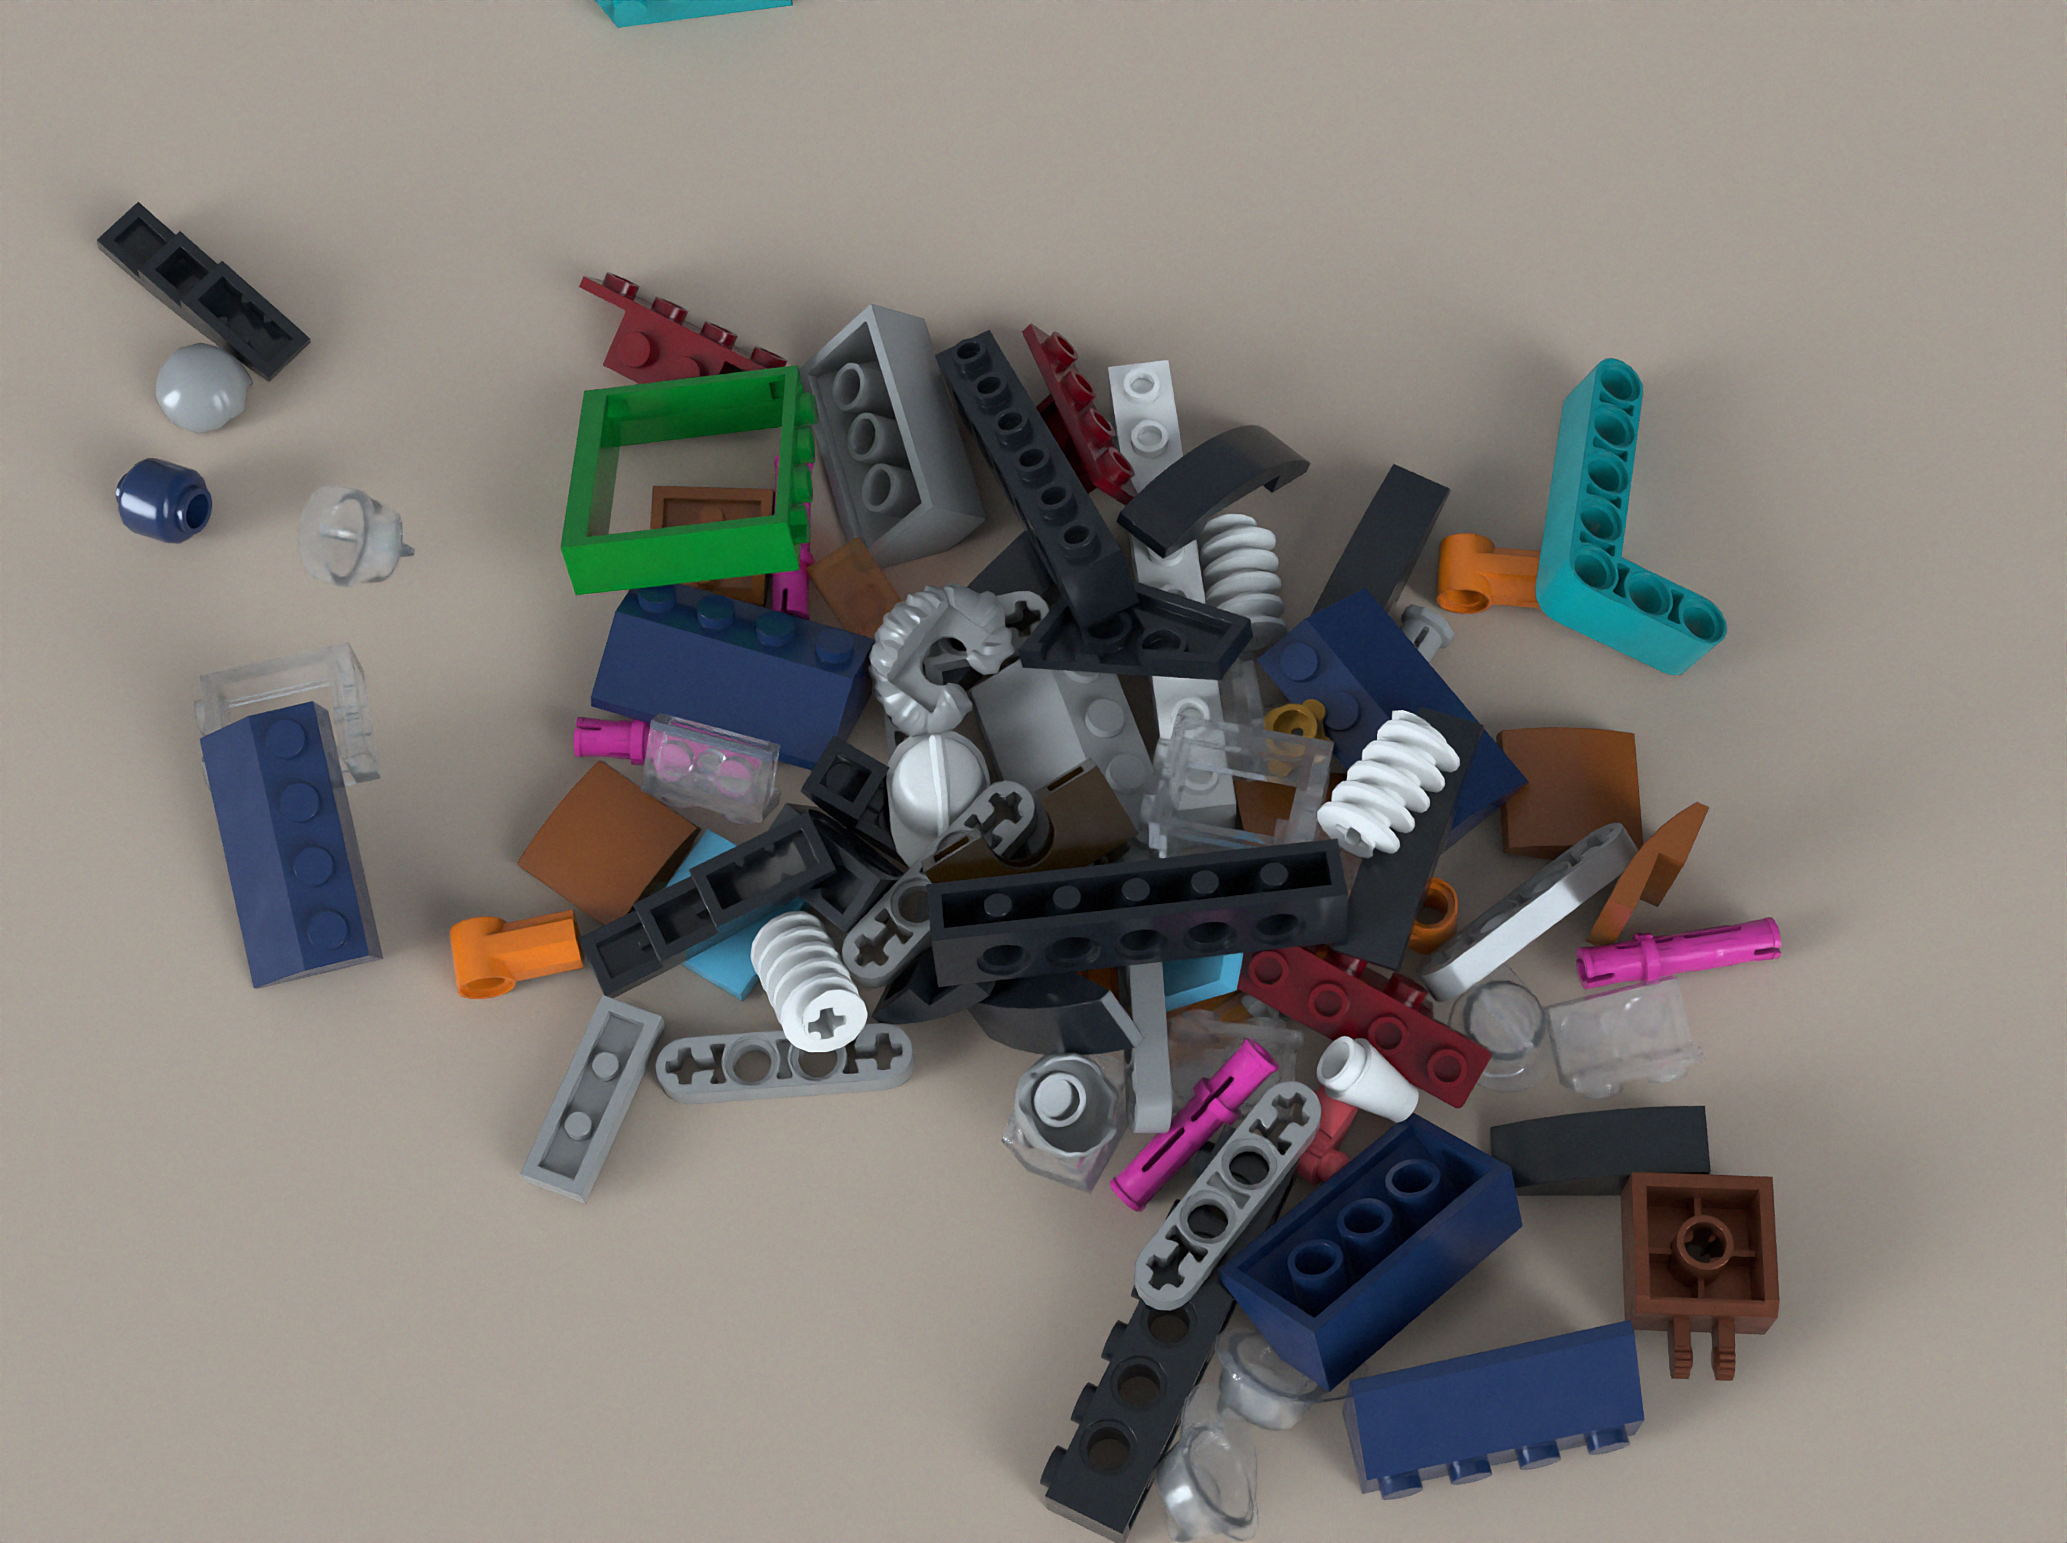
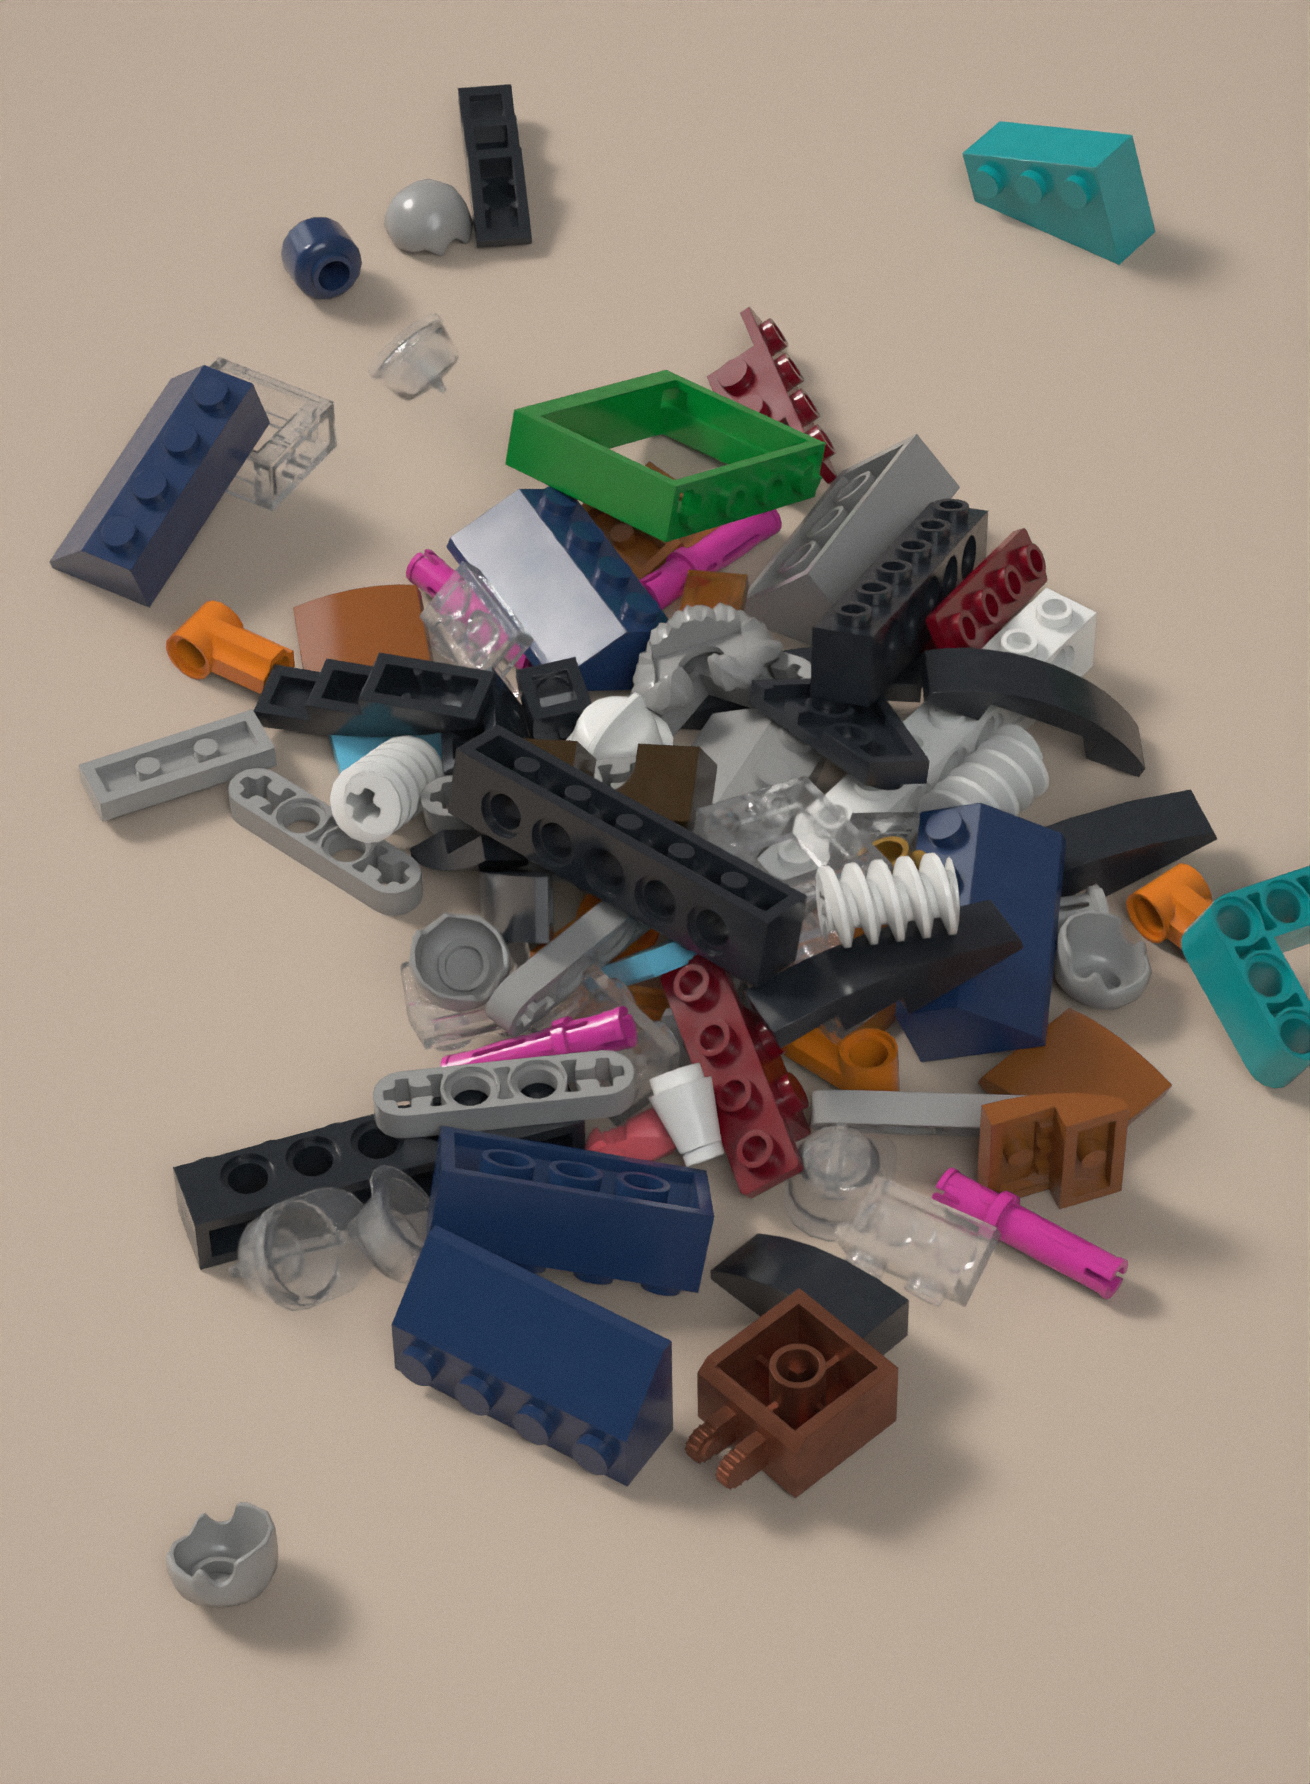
camera: 40 degrees right, 20 degrees down
(1485, 670) = (1098, 962): none -> light grey hair

